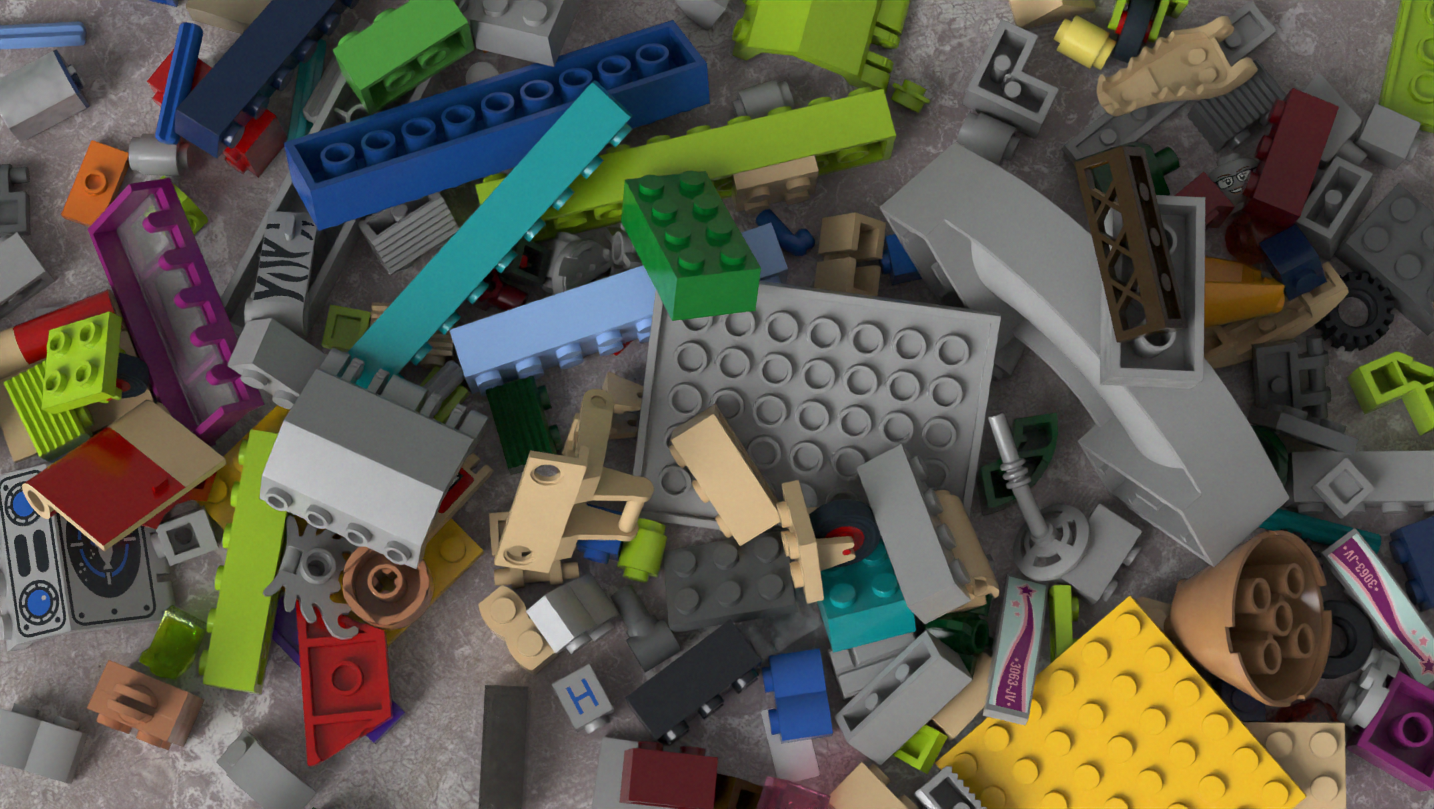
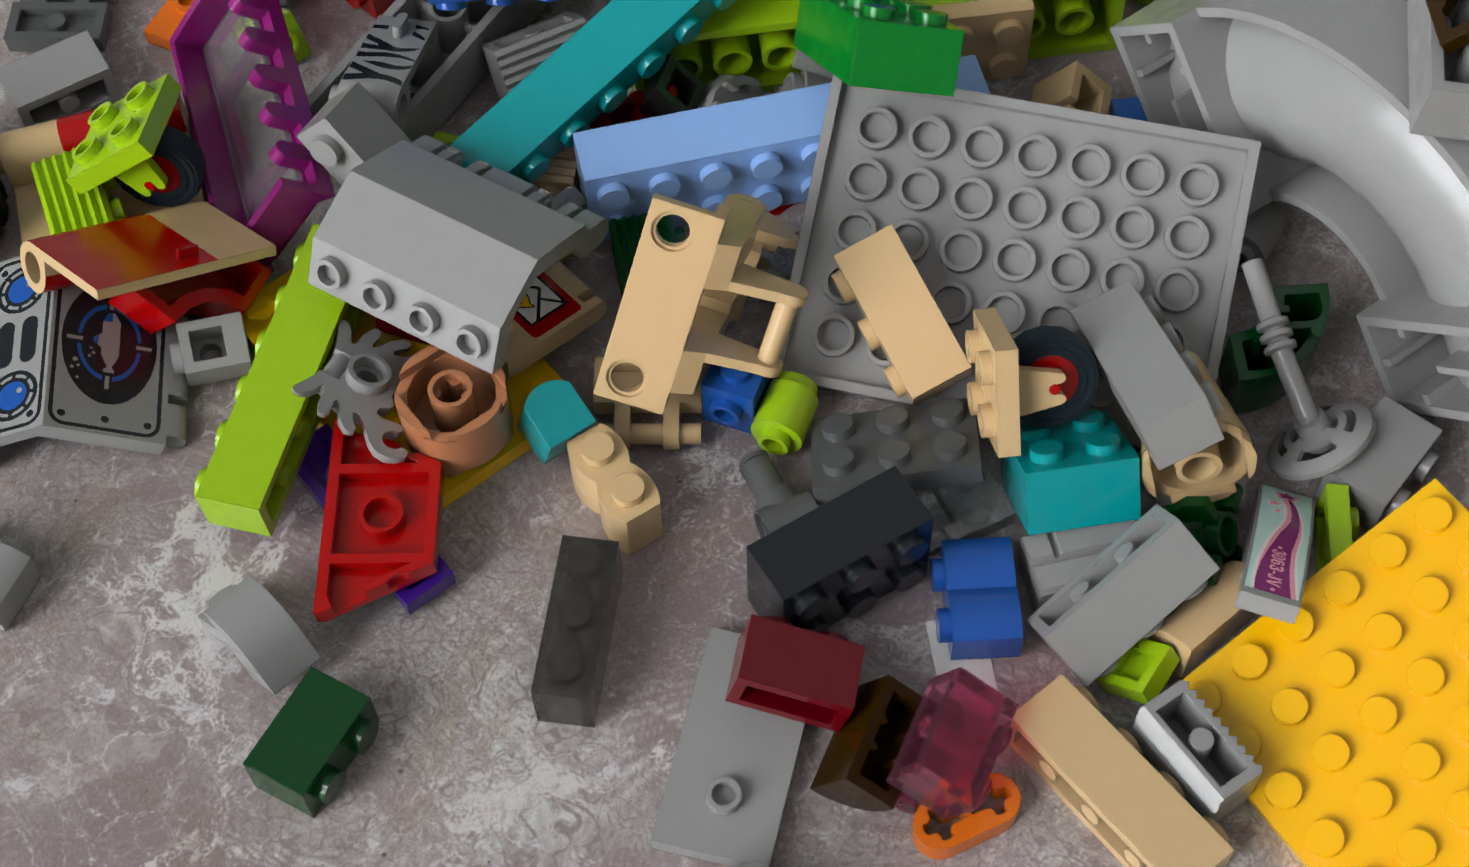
camera: 10 degrees right, 20 degrees down
(142, 702) = (118, 526): nougat brick -> none
(174, 644) = (171, 471): clear neon green bracket -> none
(465, 582) = (553, 417): none -> teal piece
(574, 614) = (688, 466): light grey brick -> none
(584, 700) = (691, 577): light grey brick -> none

